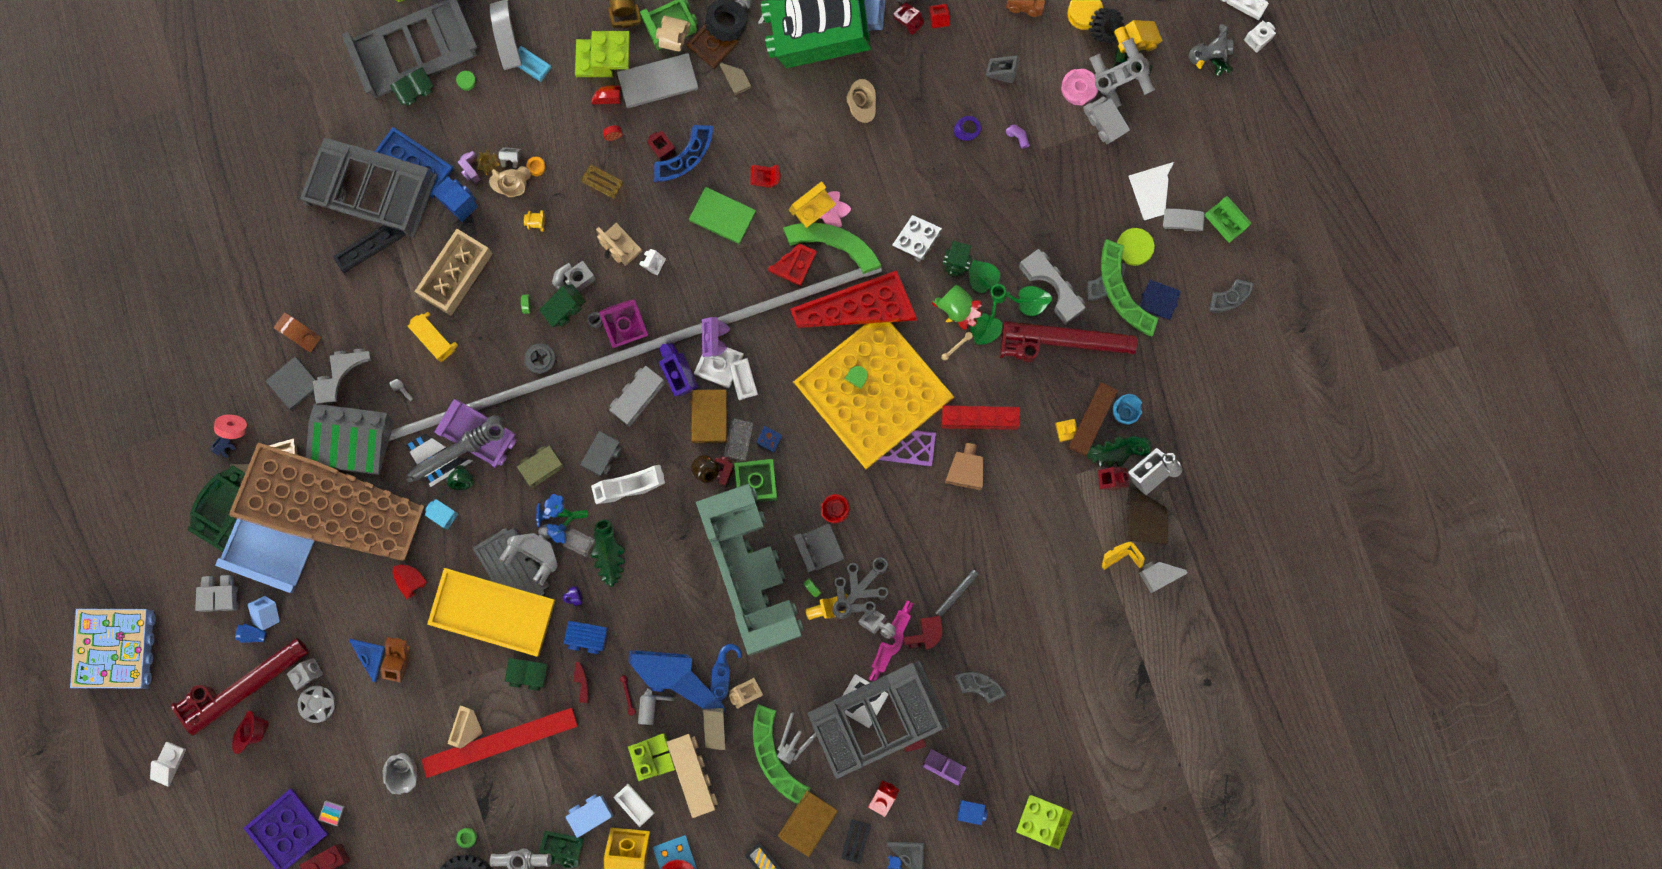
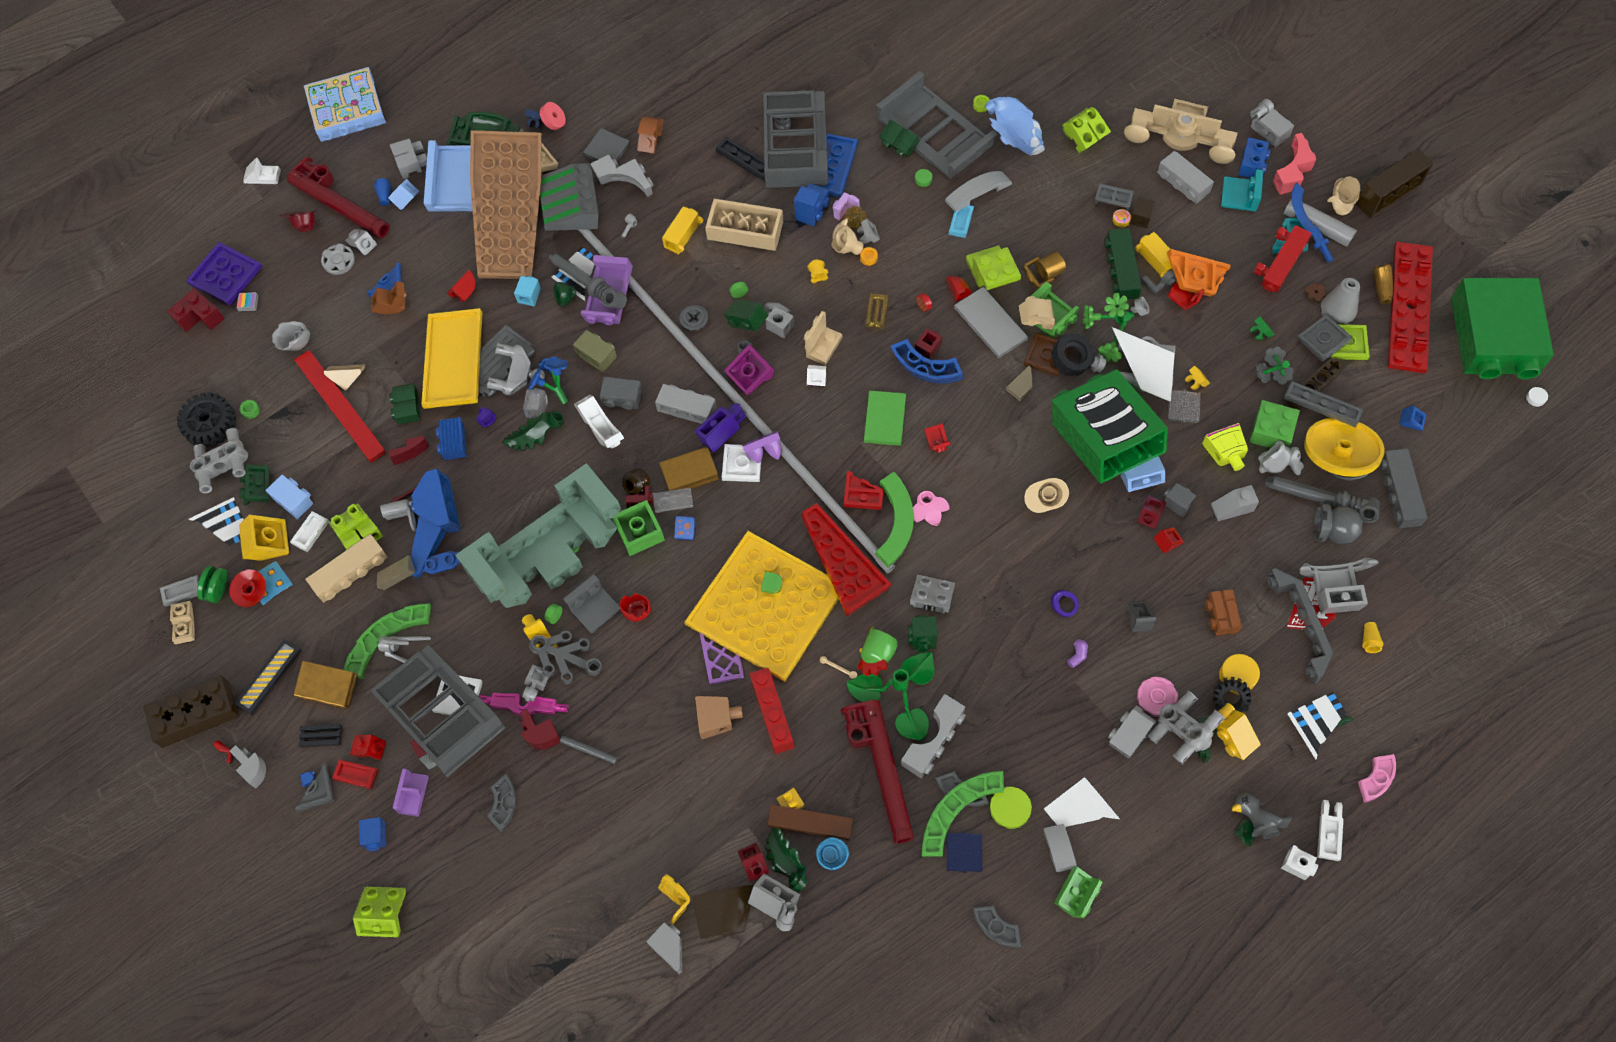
camera: 75 degrees right, 15 degrees down
(743, 379) = (734, 486): white tile -> none
(745, 693) = (436, 588): tan bracket -> none
(812, 205) = (924, 485): yellow bracket -> none
(905, 816) = (355, 774): none -> red tile

